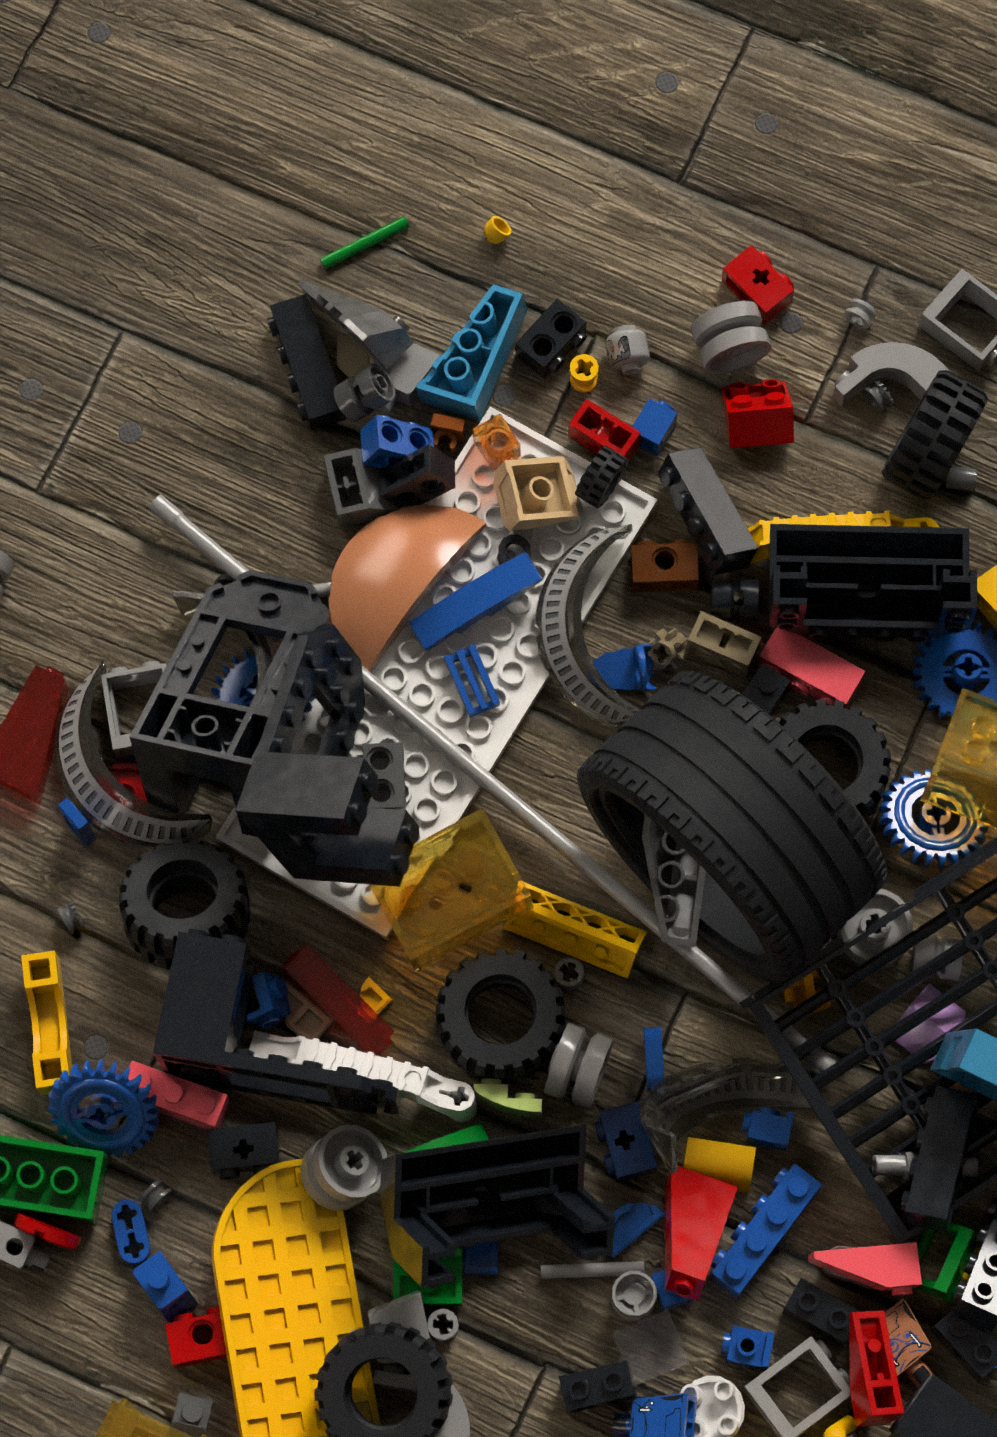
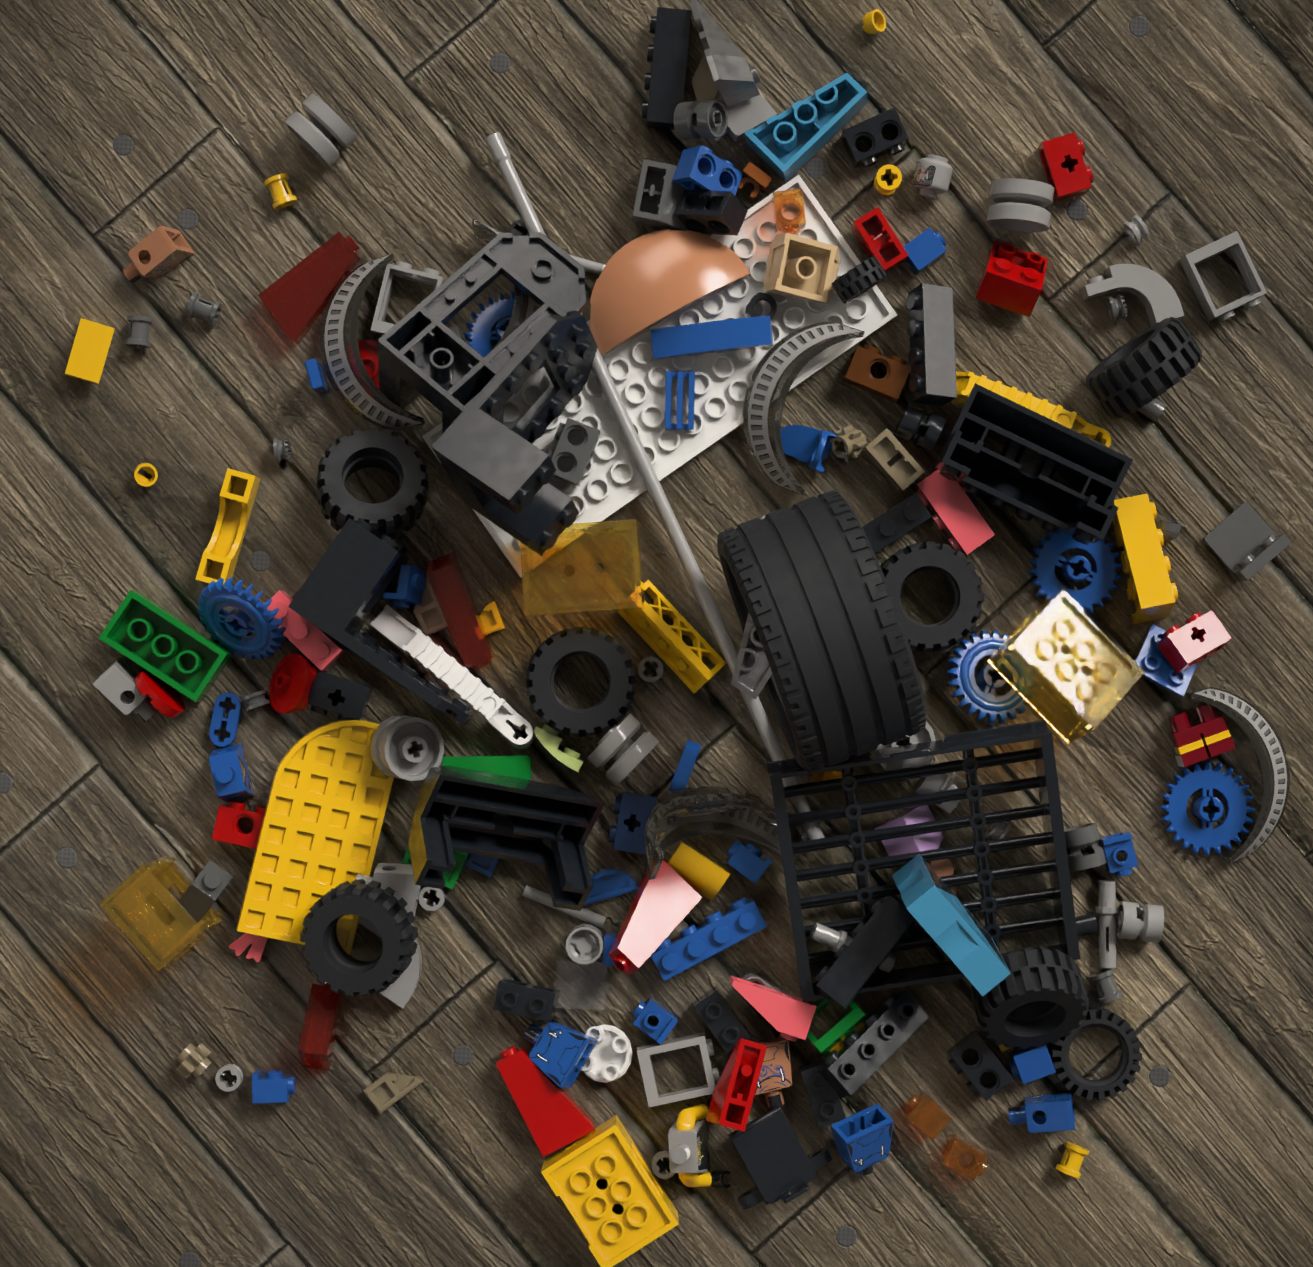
camera: 20 degrees right, 15 degrees up
(187, 1157) = (291, 684): none -> red piece

